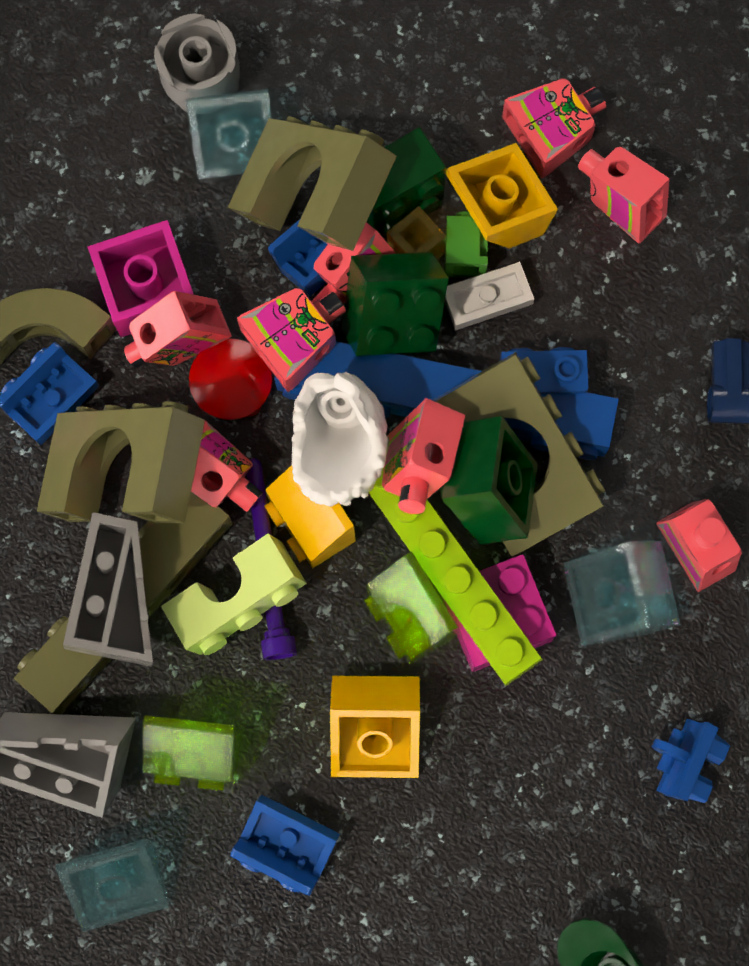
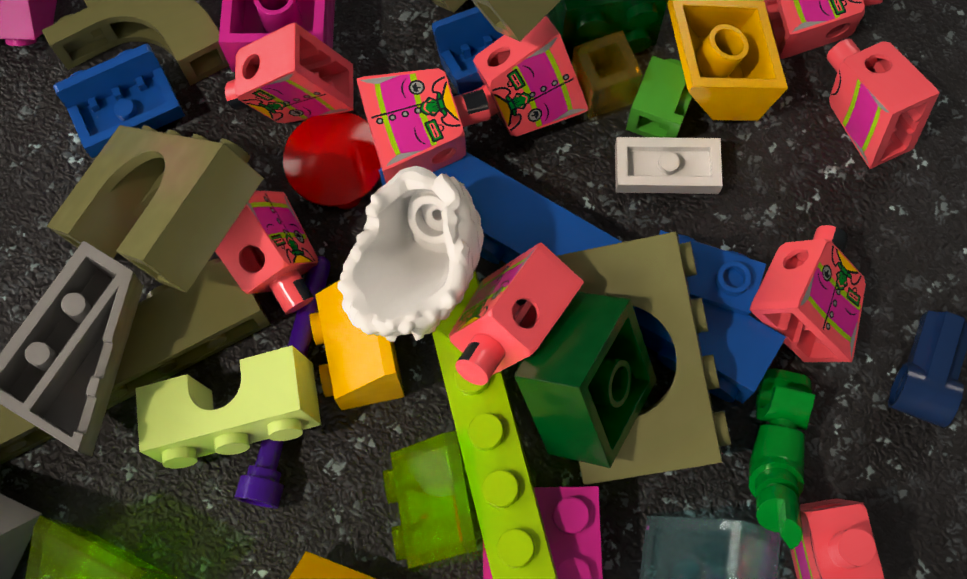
camera: 20 degrees right, 5 degrees down
(394, 303) = (552, 129): dark green brick -> none
(628, 361) = (813, 297): none -> coral torso
(640, 481) = (778, 452): none -> green piece

